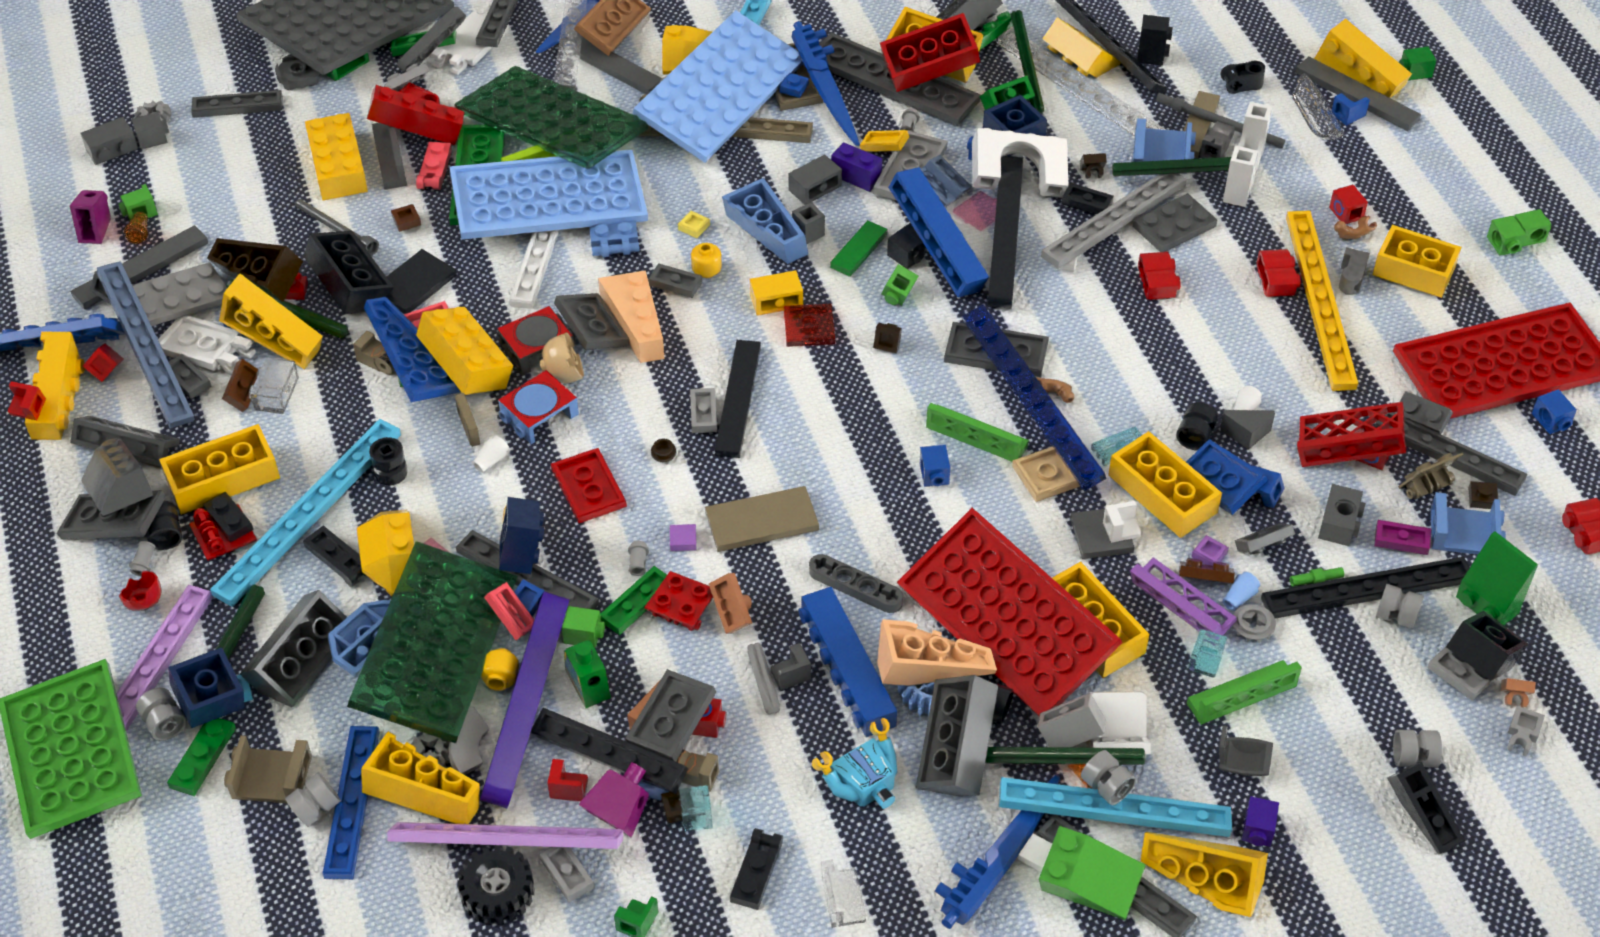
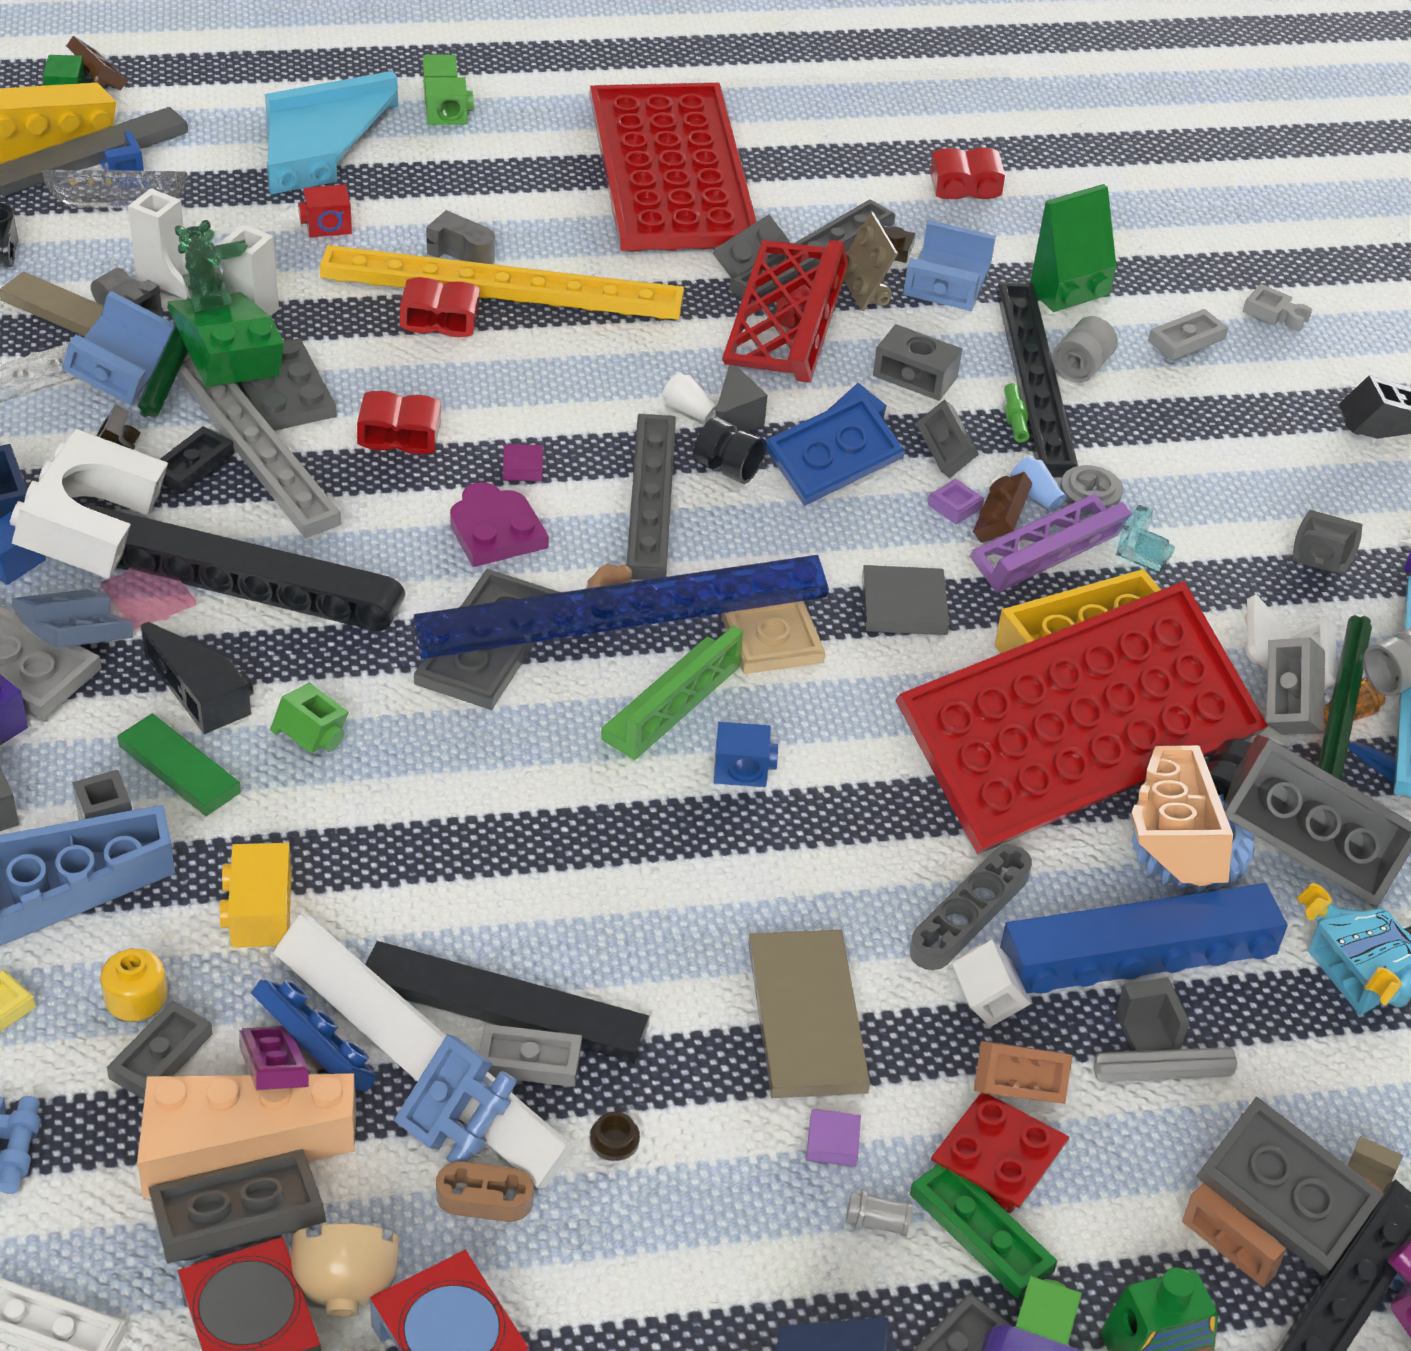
camera: 85 degrees left, 5 degrees down
(588, 485) = (671, 1279): red tile -> none
(618, 409) = (484, 1191): none -> medium nougat beam
(661, 382) = (443, 1094): none -> medium blue plate
(667, 310) = (273, 1058): none -> magenta tile
(694, 329) = (314, 1031): none -> blue tile
(696, 369) = (412, 1041): none -> white tile
(790, 586) = (990, 983): none -> white brick
(809, 325) = (347, 869): clear red tile -> none
(887, 337) = (429, 758): dark brown tile -> none
(938, 232) = (223, 628): blue brick -> none
(1091, 335) = (495, 524): none -> magenta plate
(1117, 439) = (719, 544): clear light blue tile -> none
(1121, 522) = (910, 568): white panel -> none
(1147, 401) = (651, 496): none -> dark grey tile
(1152, 338) = (522, 462): none -> magenta tile
(1164, 484) = (841, 503): yellow brick -> none
(1180, 105) = (36, 308): dark grey bar -> none
(1180, 179) = (229, 341): none -> green slope
(1215, 151) = (204, 280): none -> clear green piece
(1244, 691) = (1213, 521): bright green fence -> none
(1347, 232) = (376, 212): medium nougat piece -> none
(1402, 537) = (962, 321): magenta plate -> none
(1416, 261) = (474, 175): yellow brick -> none
(1417, 748) = (1313, 392): light grey wheel -> none
(1438, 181) = (319, 125): none -> medium azure piece
(1445, 72) = (101, 70): none -> reddish brown plate
(1486, 646) = (1167, 291): black brick -> none
(1517, 687) = (1218, 295): nougat tile -> none
(1554, 411) = (774, 149): blue brick -> none

